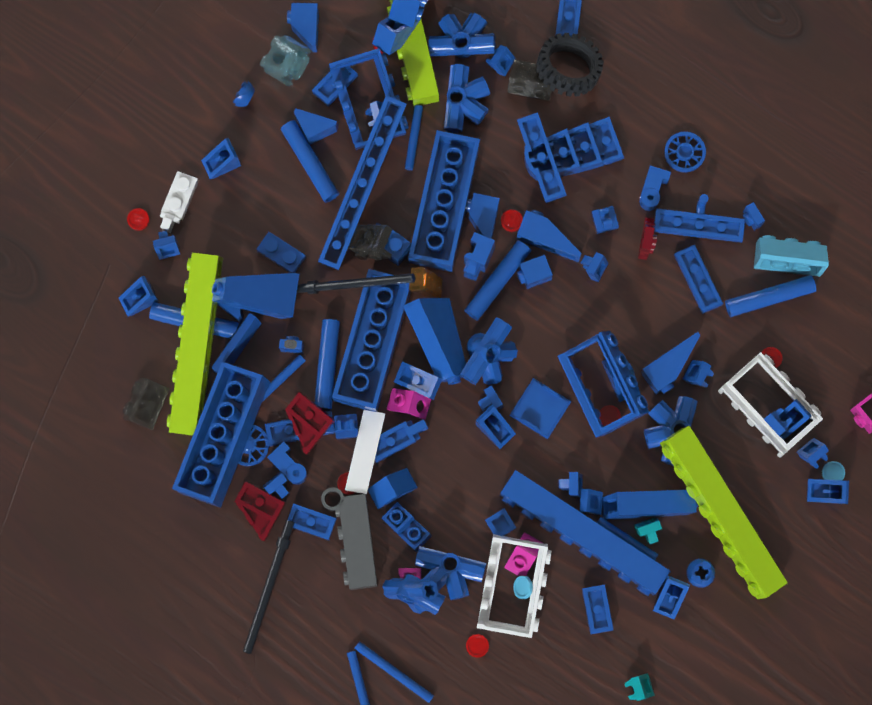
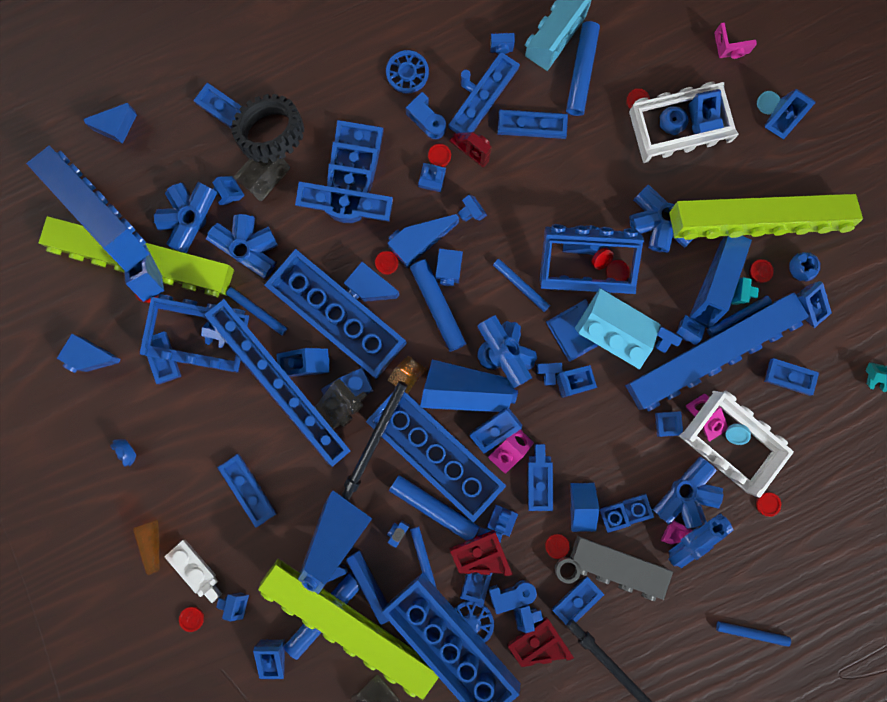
camera: 70 degrees left, 5 degrees up
(182, 152) = (148, 543): none -> clear orange slope
(221, 159) = (177, 507): blue slope -> none
(263, 208) = (247, 490): none -> blue tile
(281, 253) = (300, 496): blue plate -> none
(285, 59) = (111, 393): clear light blue brick -> none
(309, 161) = (225, 422): blue piece -> none
(315, 126) = (194, 399): blue slope -> none
(365, 451) = (539, 516): white sticker -> none
(391, 196) = (304, 361): none -> blue slope
(394, 672) = (756, 595): blue bar -> none
(481, 256) = (409, 309): blue hips -> none
(553, 340) = (521, 285): none -> blue bar
(557, 437) = (618, 328): none -> medium azure slope
(612, 396) = (602, 258): none -> red piece
(627, 216) = (439, 155): none -> red piece
(666, 369) = (602, 193): blue slope -> none
(677, 540) = (761, 271): none -> red piece
(697, 373) = (620, 171): blue tile -> none
(762, 396) = (670, 126): none -> blue plate
(813, 451) = (744, 108): blue tile -> none

